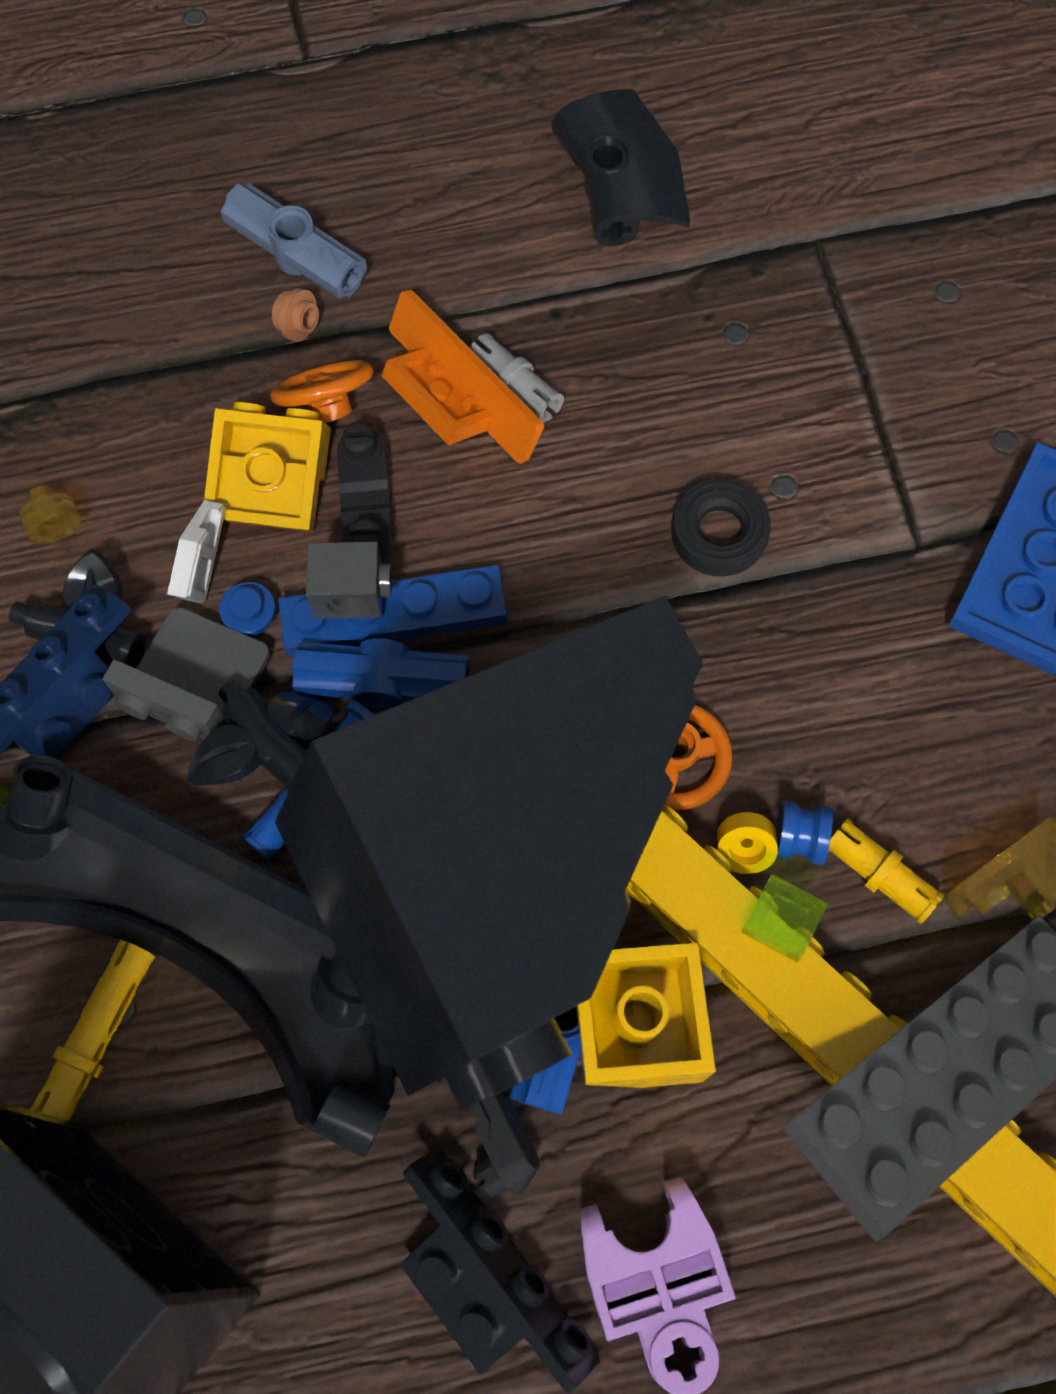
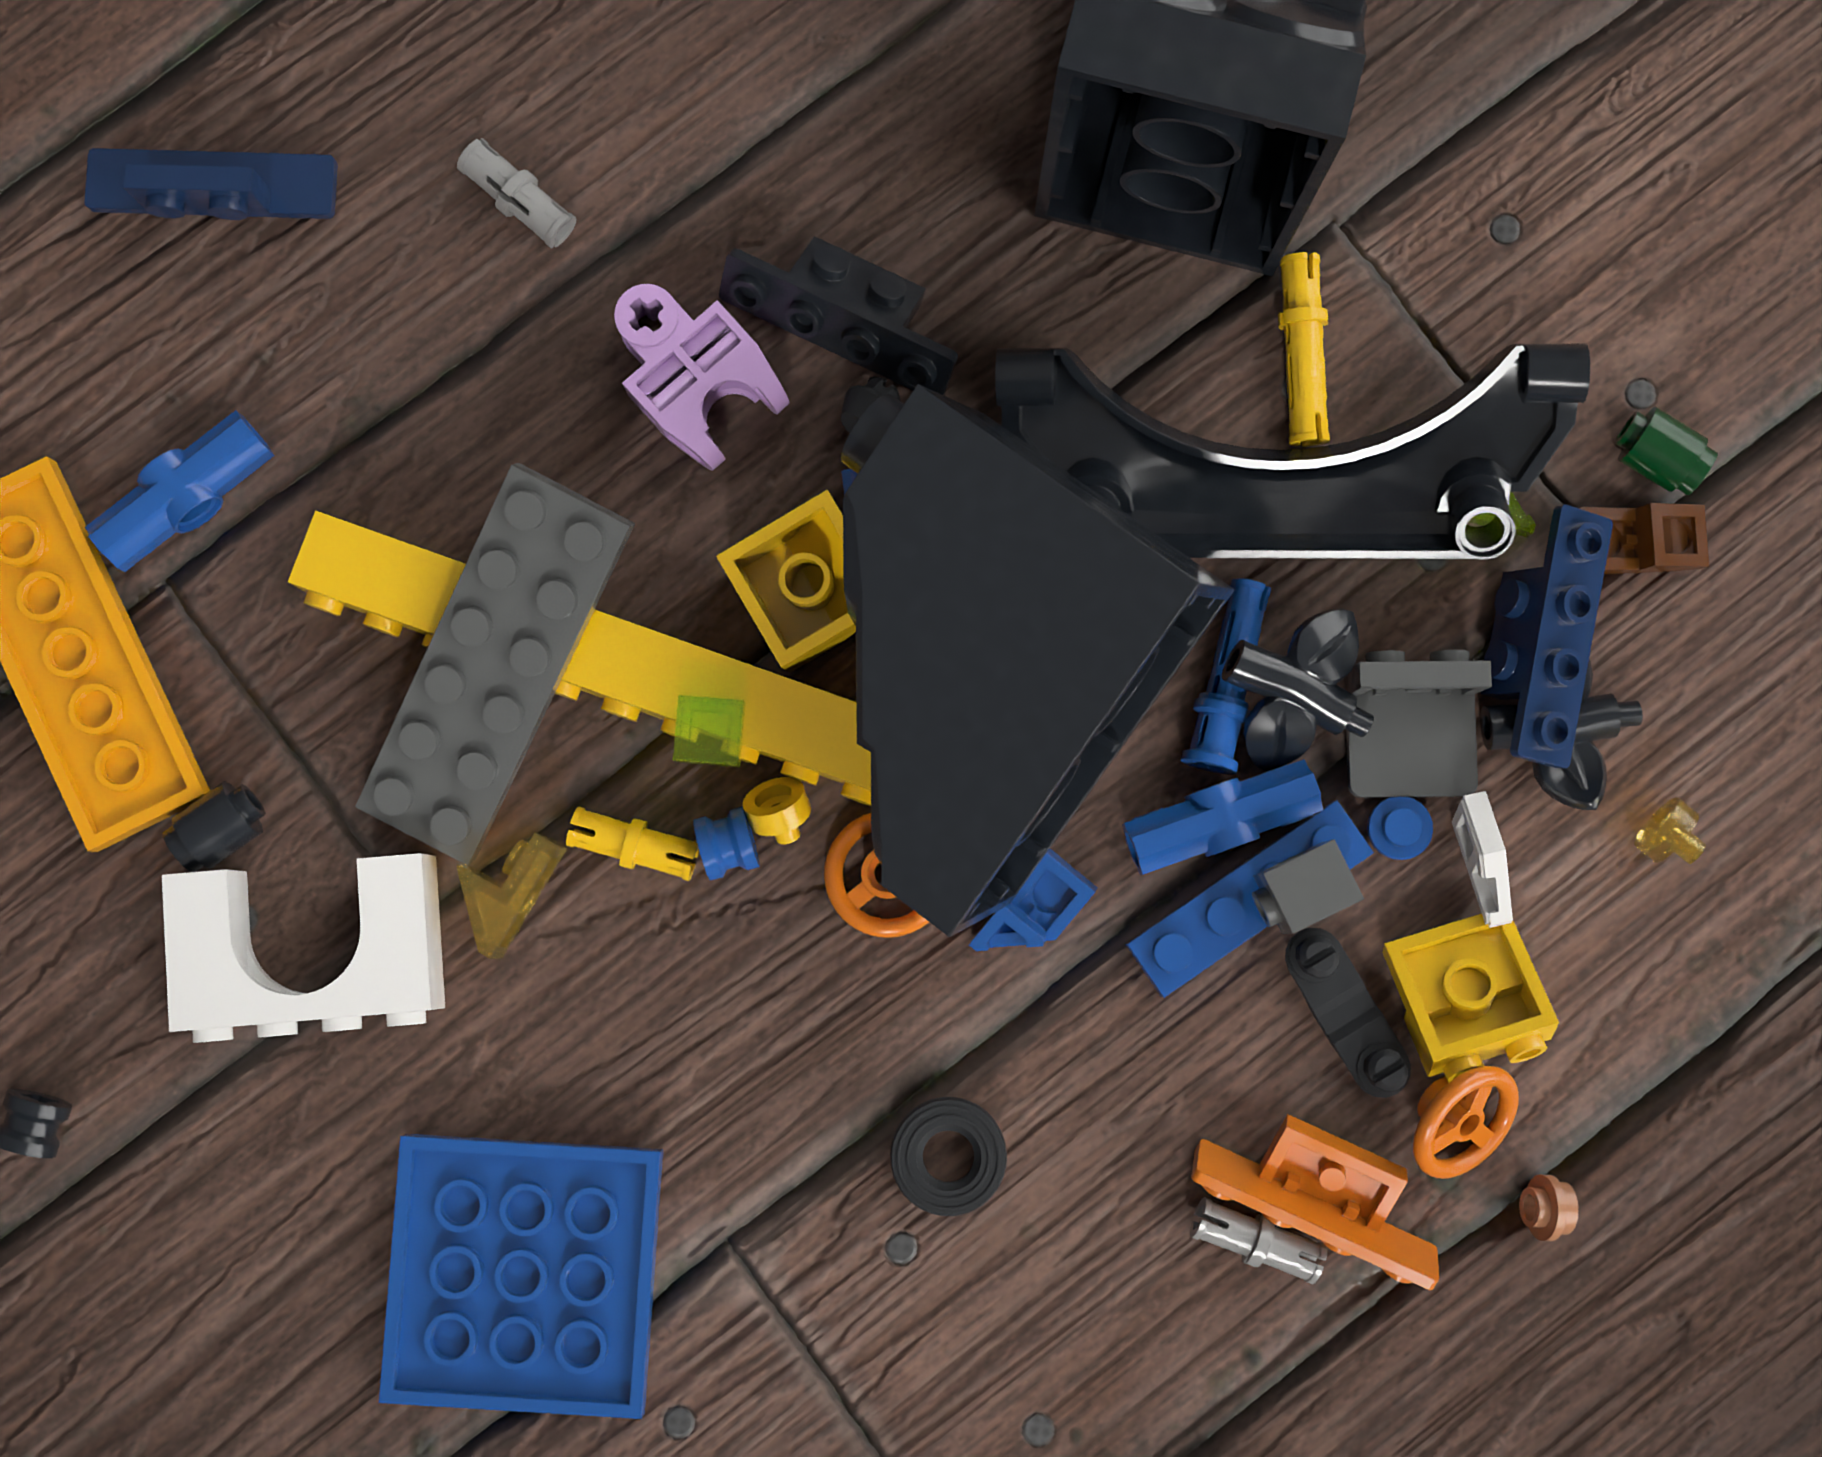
camera: 155 degrees right, 15 degrees up
(293, 240) = (1643, 1311): sand blue piece -> none

